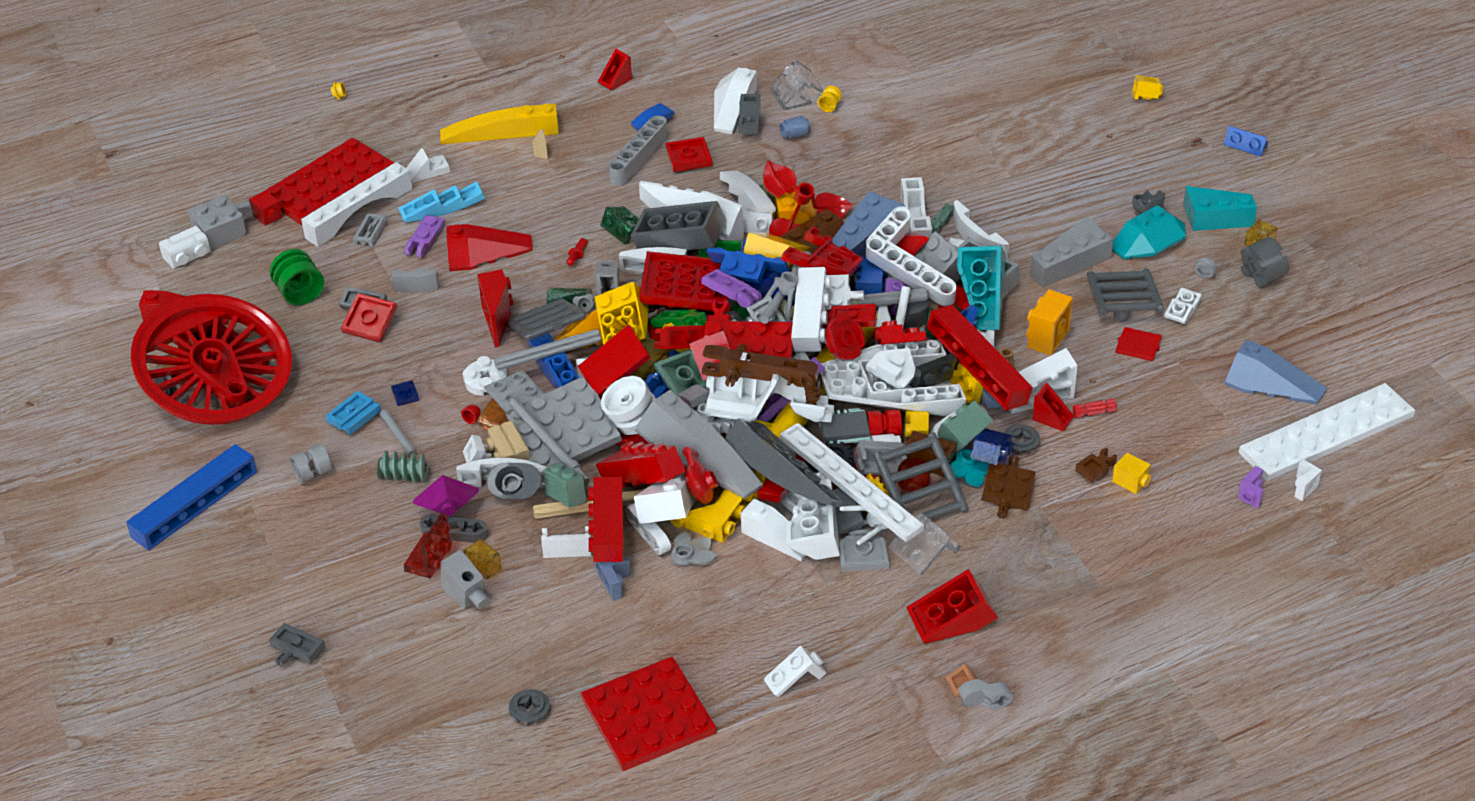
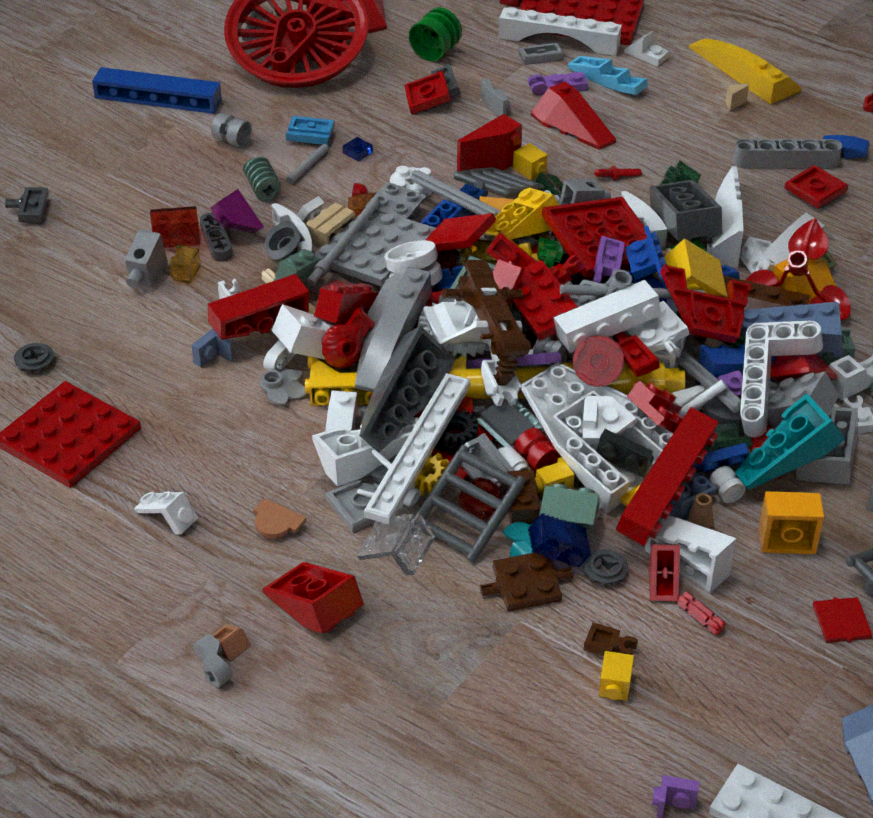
camera: 60 degrees right, 0 degrees up
(525, 293) = (530, 161): none -> yellow brick
(852, 607) = (275, 520): none -> nougat piece

